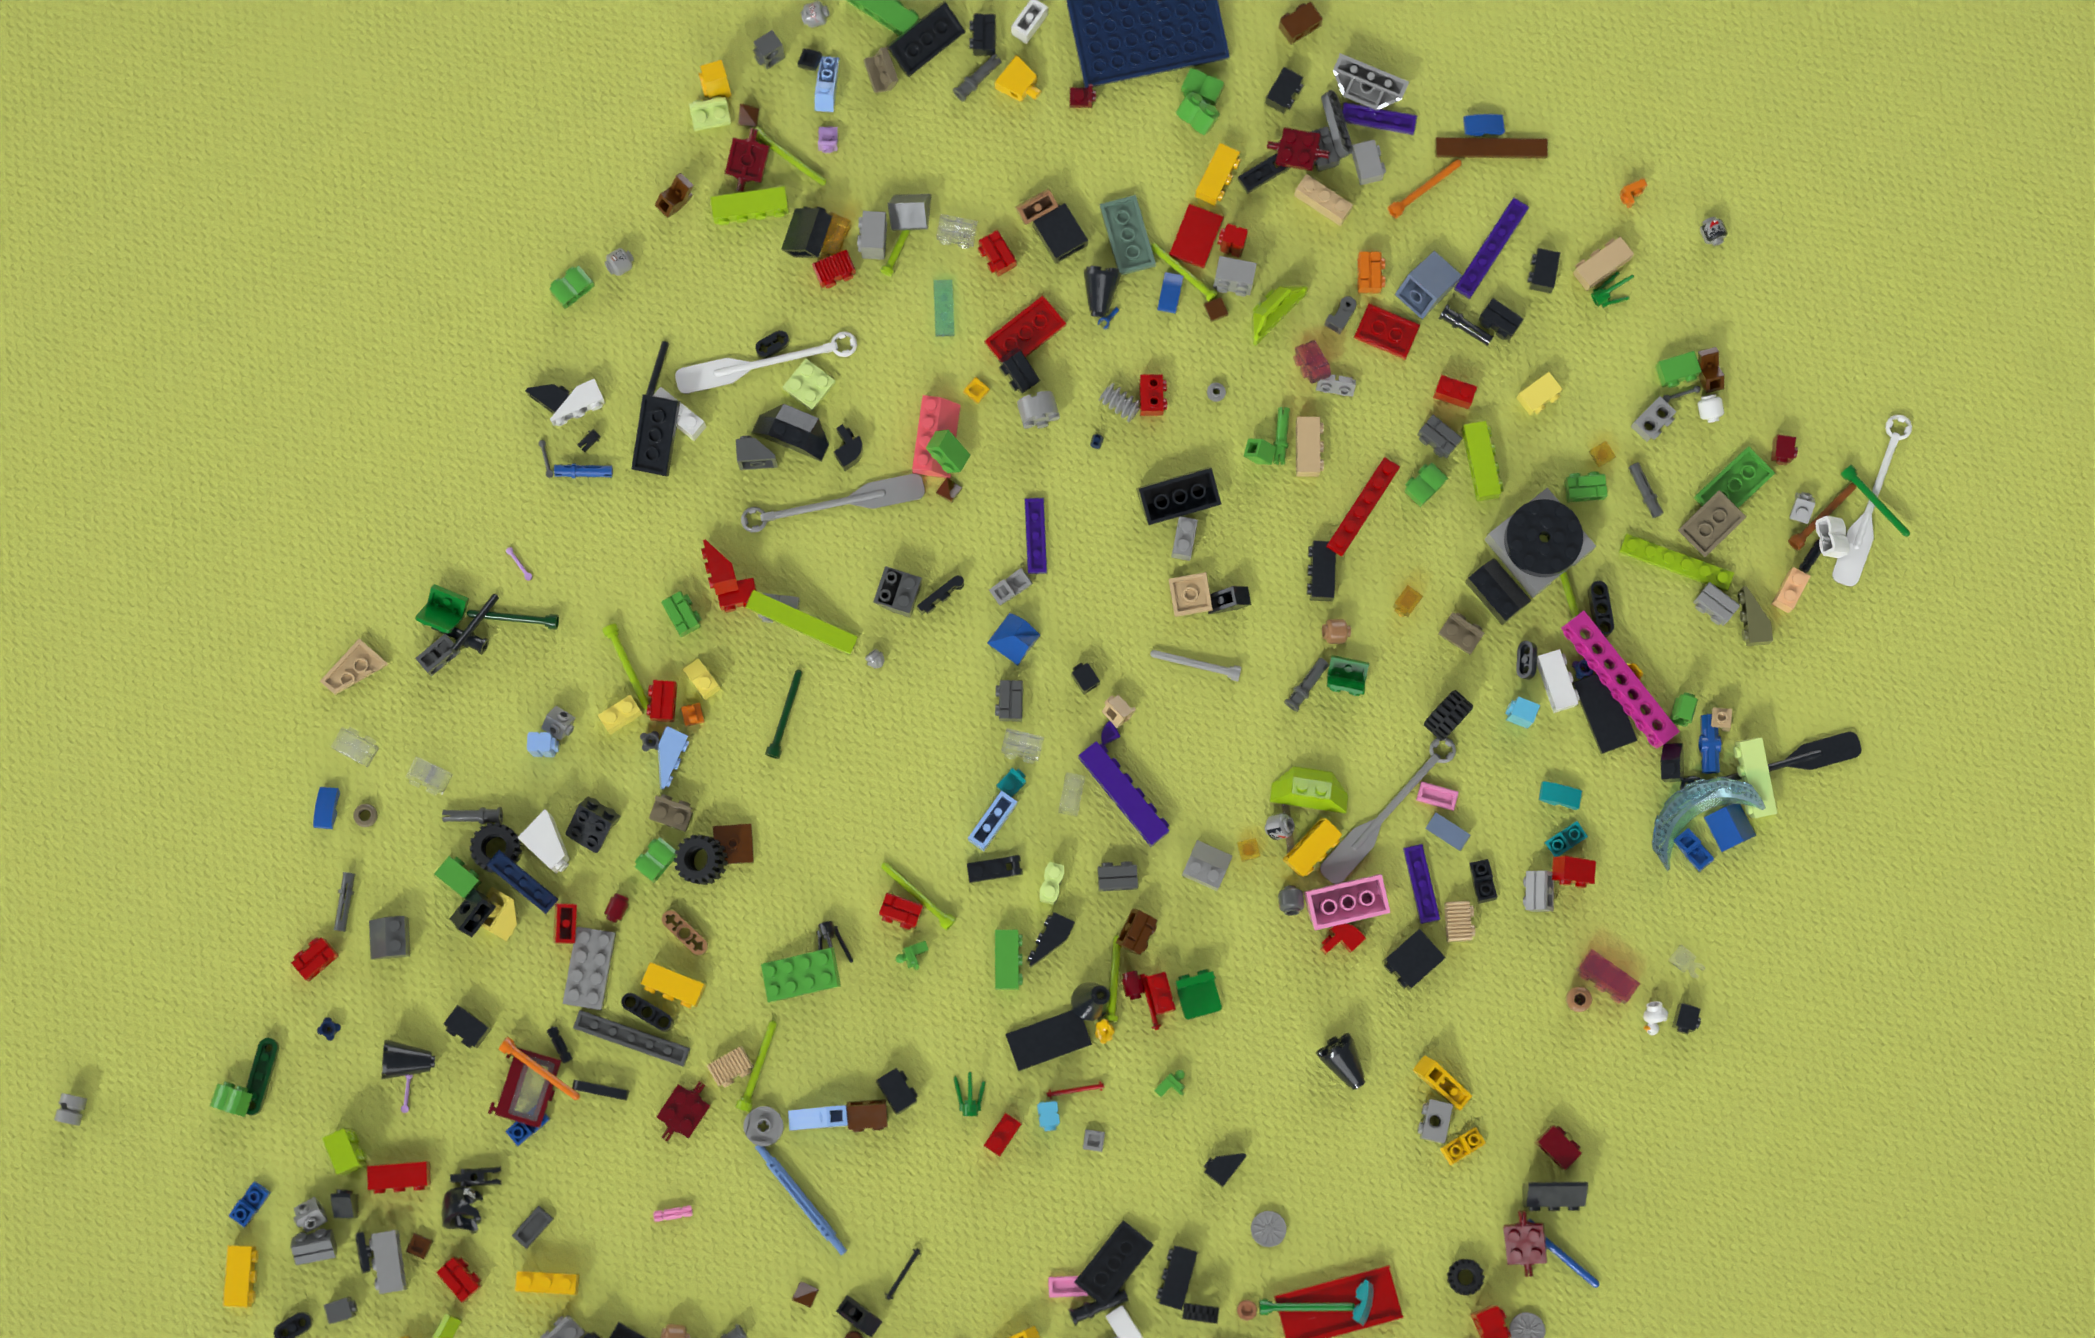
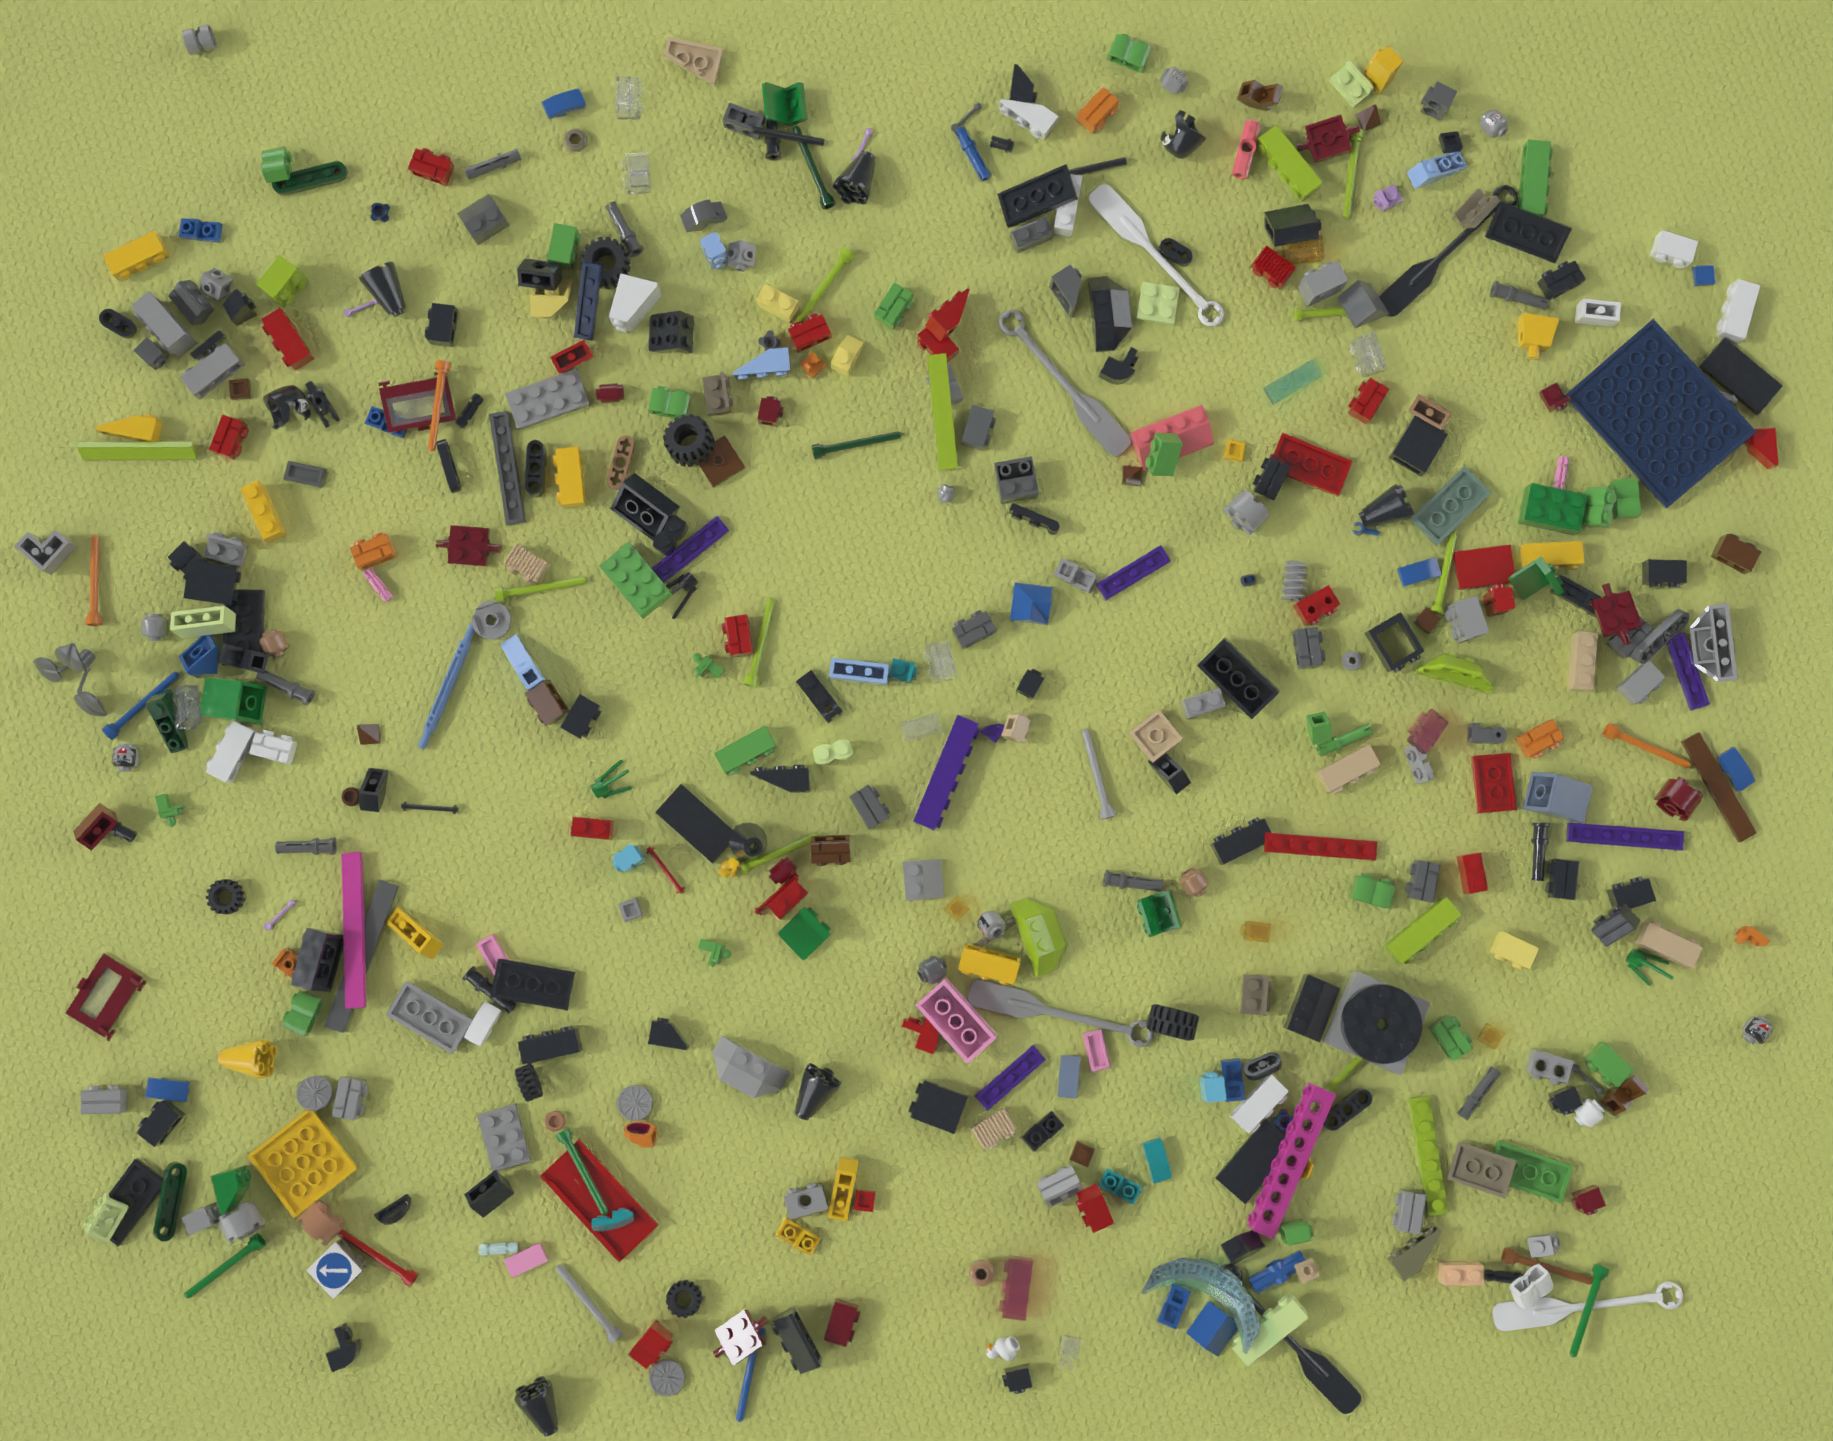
camera: 60 degrees right, 5 degrees up
(321, 1283) = (163, 325): none -> light grey brick
(502, 738) = (701, 214): none -> dark grey brick
(548, 584) = (856, 179): none -> black cone
(607, 341) = (1098, 110): none -> orange brick
(640, 1200) = (373, 551): none -> orange brick
(678, 279) = (1186, 137): none -> black piece
(686, 459) = (1031, 235): none -> dark grey brick
(708, 227) = (1244, 159): none -> coral piece
(714, 774) = (770, 411): none -> dark red brick
(738, 932) = (643, 506): none -> black slope
(775, 919) = (673, 531): none -> black brick
(798, 912) = (690, 549): none -> dark purple tile
(832, 599) = (977, 428): none -> dark grey brick
(911, 147) = (1421, 275): none -> black piece
(1151, 128) = (1561, 472): none -> bright pink axle
(1178, 152) = (1552, 509): none -> green brick
(1185, 422) = (1308, 647): none -> dark grey brick
(1203, 363) = (1379, 649): none -> black window
(1229, 199) = (1535, 577): none -> green bracket
(1292, 1112) = (747, 1070): none -> light grey wedge
(1299, 1236) = (641, 1133): none -> orange rock
(1462, 1069) = (864, 1200): none -> red plate
(1483, 186) = (1678, 798): none -> dark red brick
(1516, 687) = (1233, 1081): none -> blue slope
(1520, 857) = (1082, 1154): none -> reddish brown plate
(1563, 297) = (1615, 924): none -> black brick
(1689, 422) = (1564, 1100): none -> black brick

